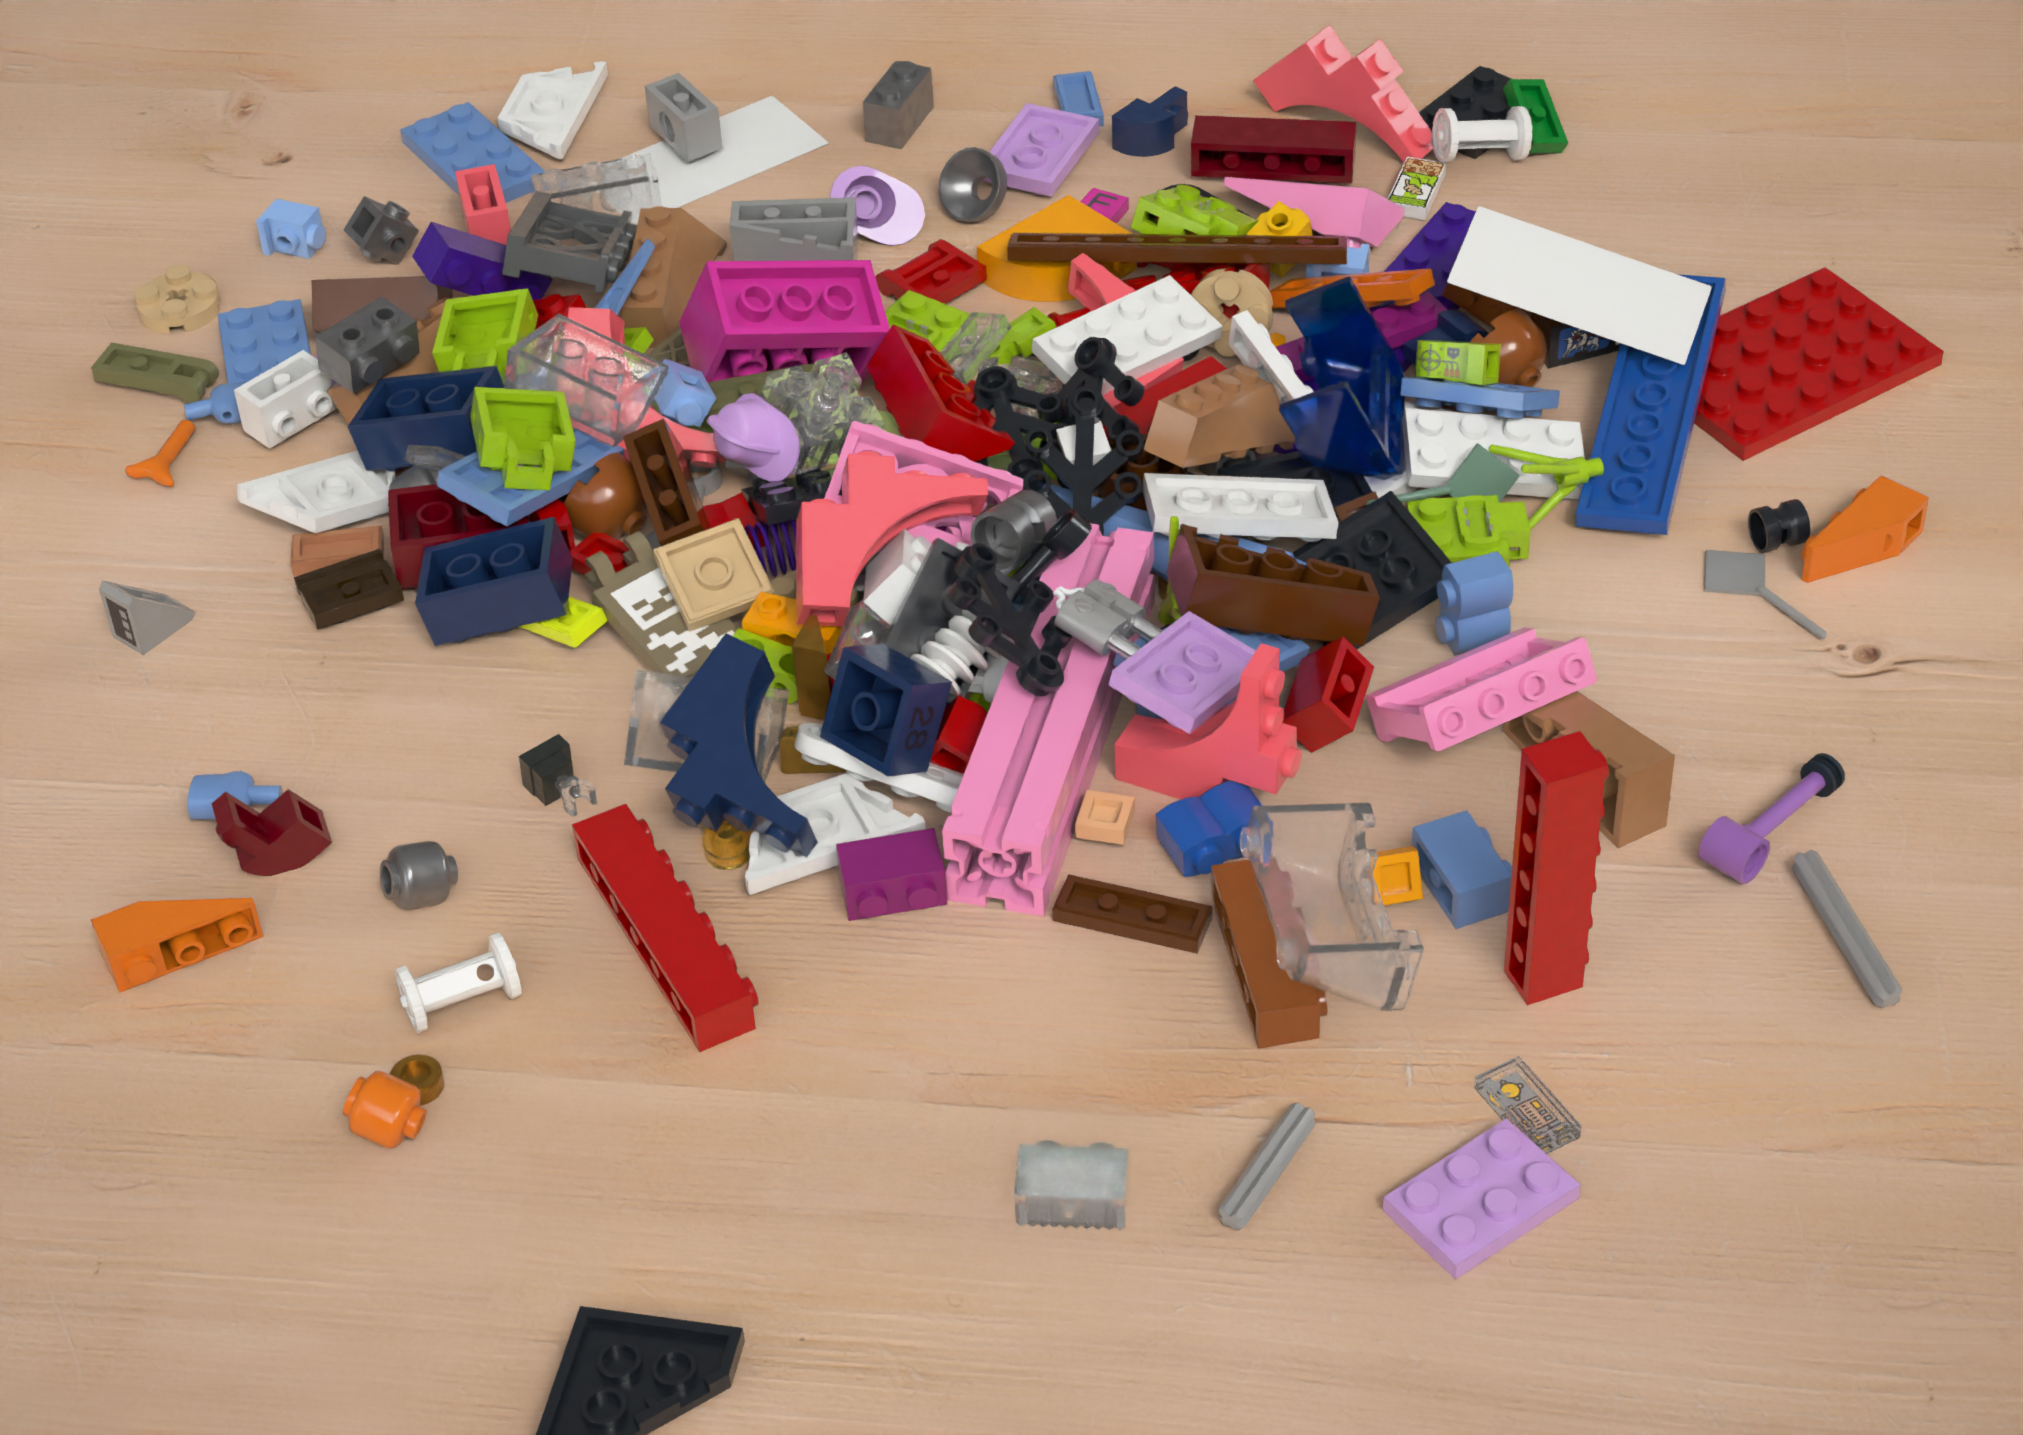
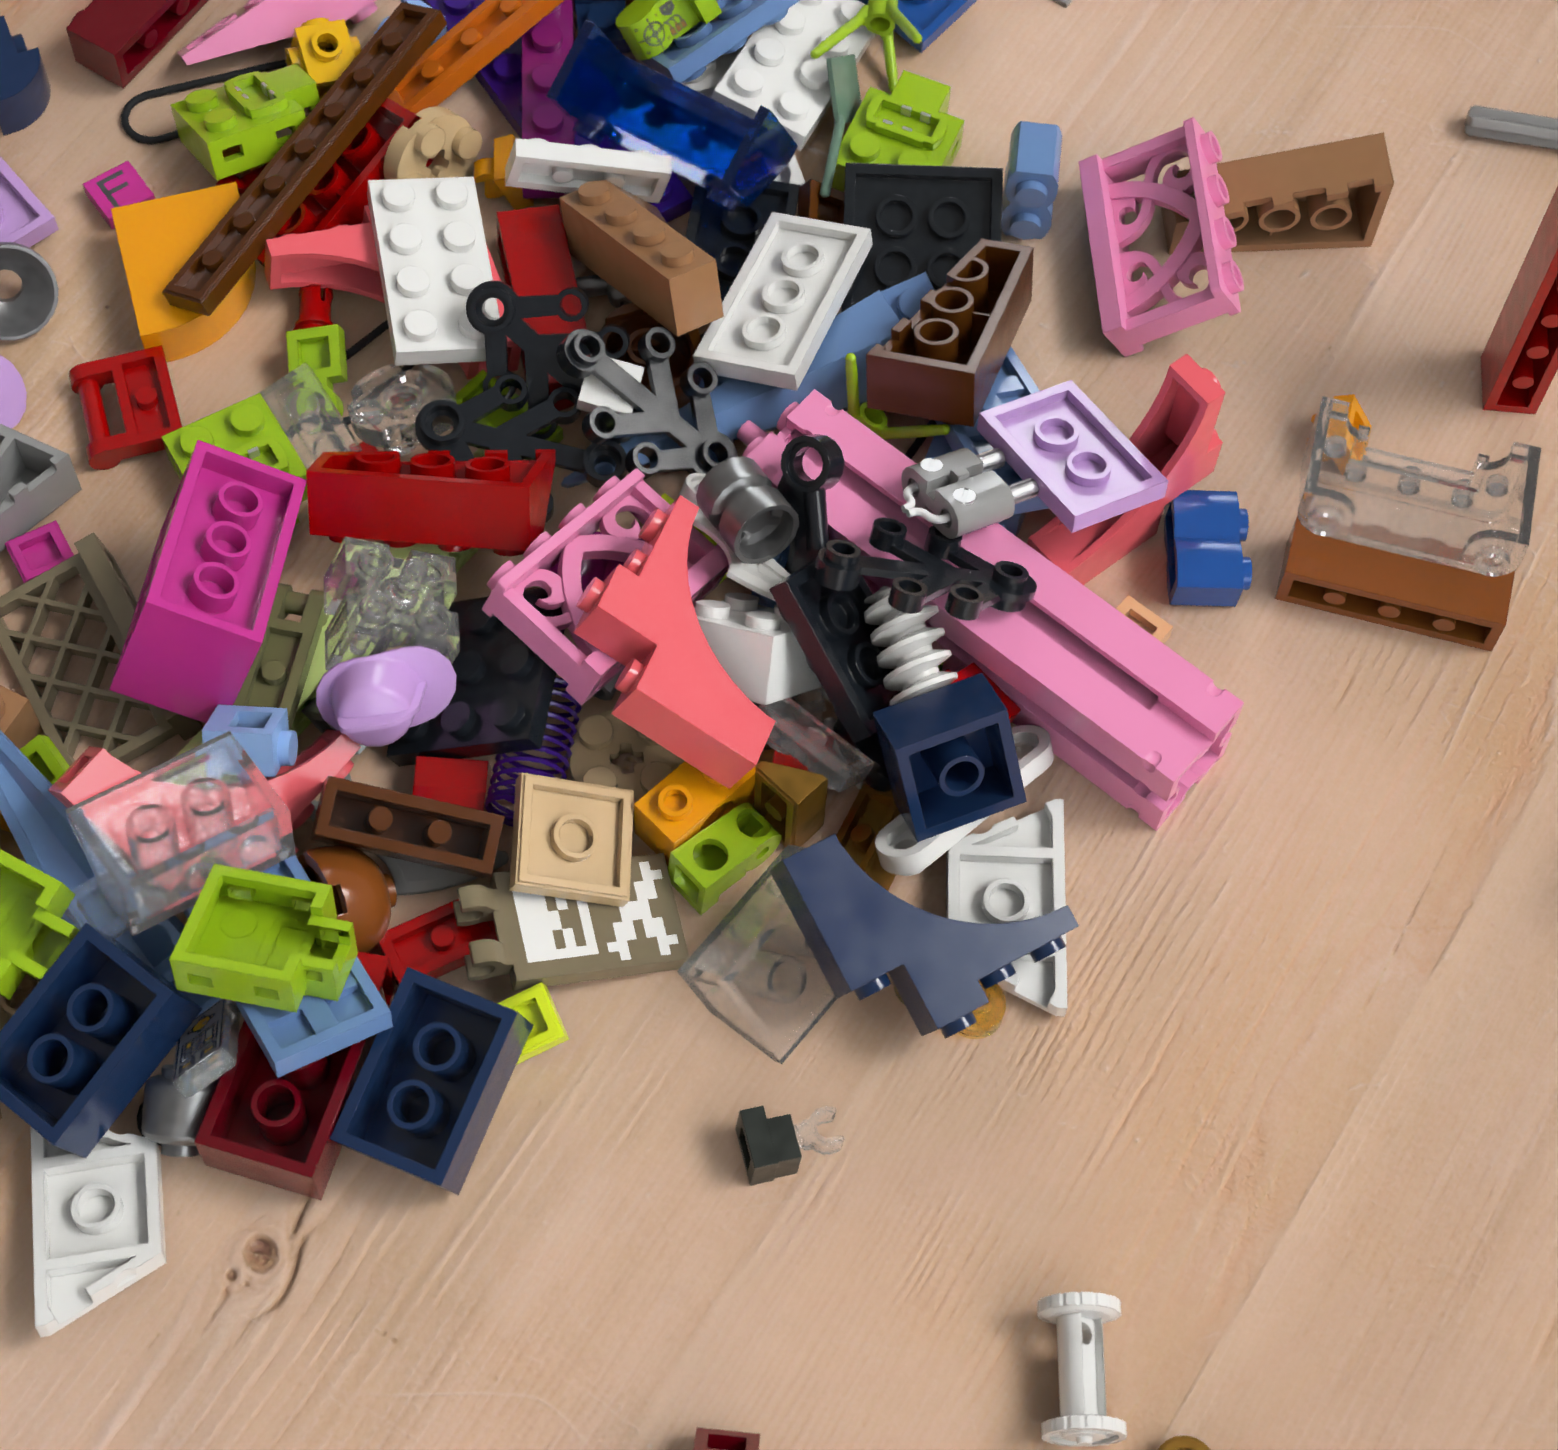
camera: 70 degrees left, 20 degrees up
(326, 548) = (198, 1248): nougat tile -> none
(348, 589) = (295, 1259): dark brown plate -> none
(418, 875) = (874, 1353): flat silver head -> none
(665, 927) = (1085, 1118): red brick -> none
(891, 874) = (1123, 864): magenta brick -> none
(1132, 913) = (1279, 666): reddish brown tile -> none
(1327, 694) = (1069, 348): red brick -> none
(1462, 869) = (1378, 369): medium blue brick -> none
(1741, 849) = (1439, 157): medium lavender piece -> none

